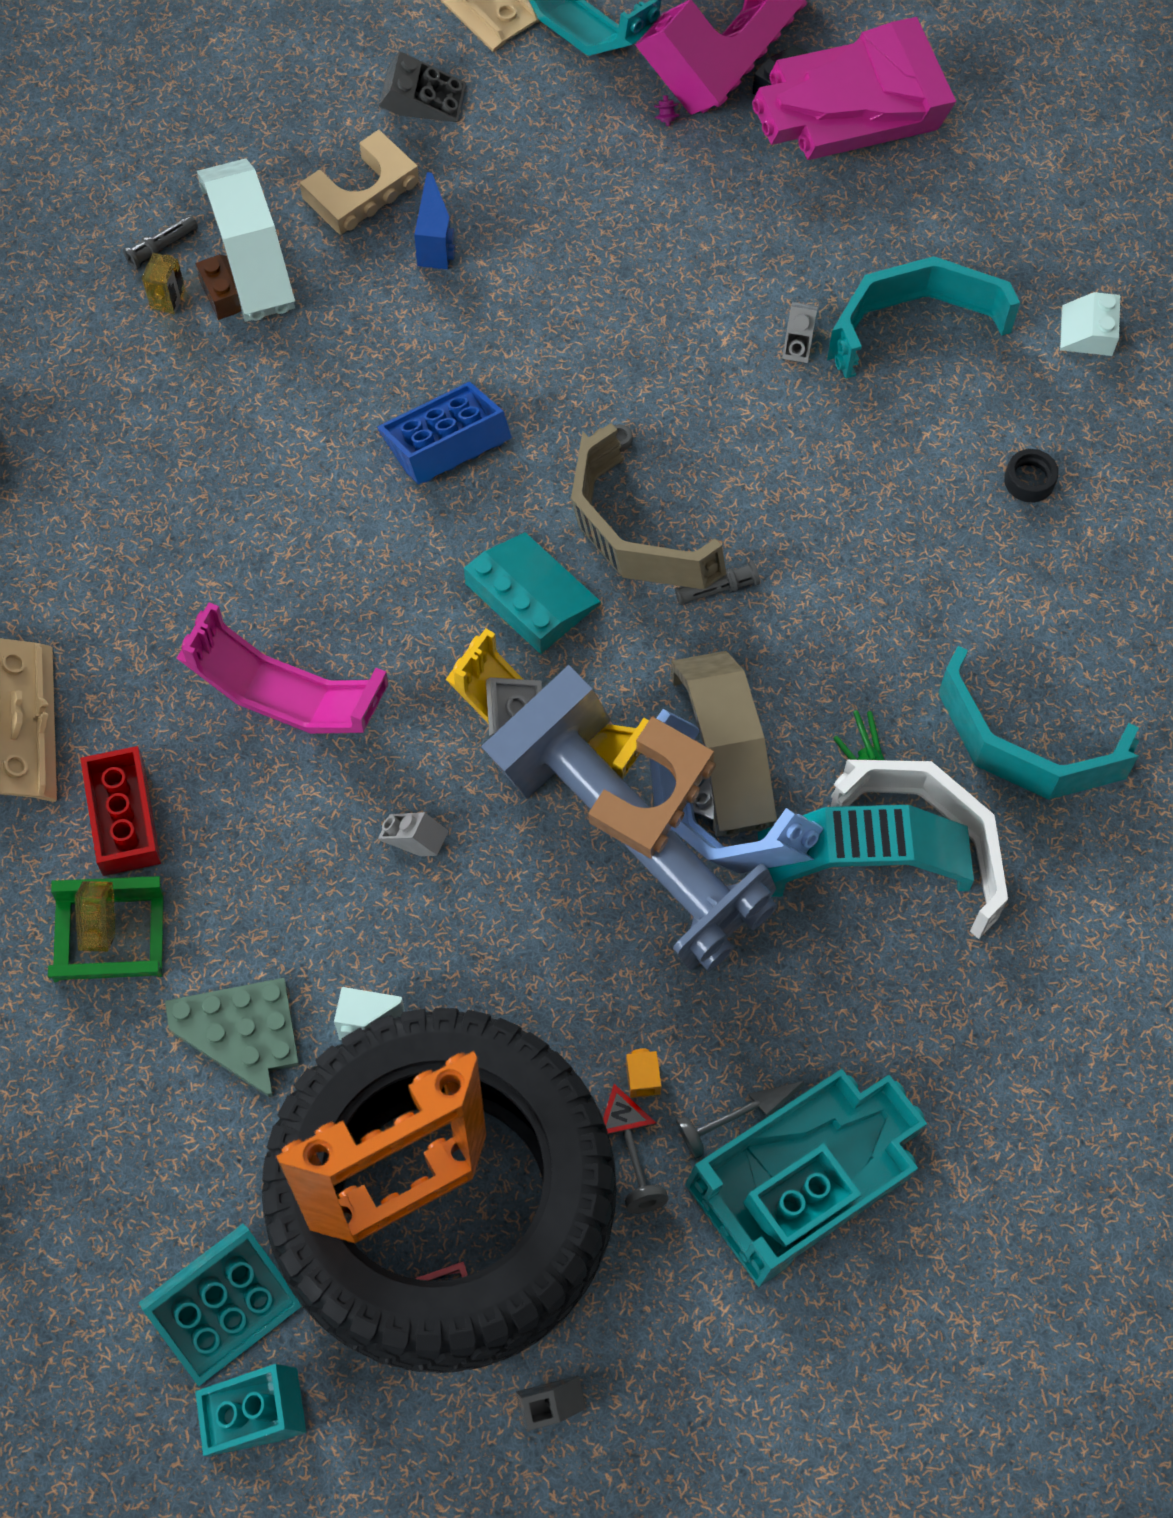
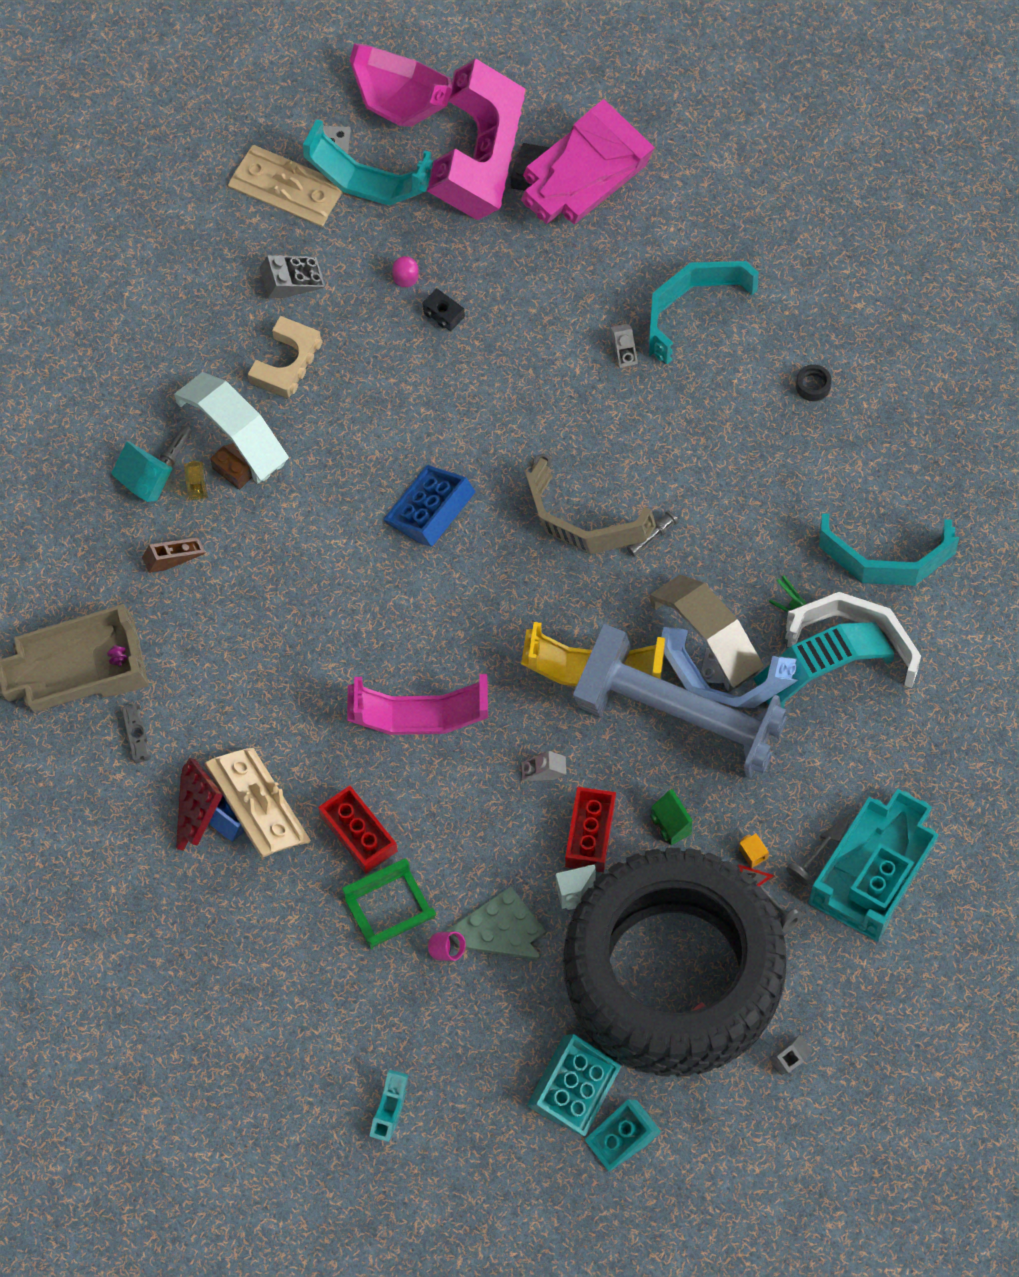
camera: 20 degrees left, 0 degrees up
(87, 362) = (172, 553): none -> reddish brown slope
(95, 916) = (380, 897): clear yellow brick -> none
(105, 250) = (141, 472): none -> teal slope
(143, 1020) = (440, 946): none -> dark pink helmet
(314, 1182) = (635, 977): orange slope -> none
(430, 945) = (590, 828): none -> red brick
(433, 230) = (355, 370): blue slope -> none
(506, 698) = (567, 663): light grey tile -> none
(529, 590) = (537, 586): teal slope -> none
(549, 978) = (671, 818): none -> green slope
(565, 137) = (405, 271): none -> dark pink helmet
(589, 201) = (439, 301): none -> black brick
(647, 827) = (692, 703): medium nougat arch -> none
(666, 110) = (462, 224): magenta wheel -> none
(1091, 324) = (806, 265): light aqua slope -> none

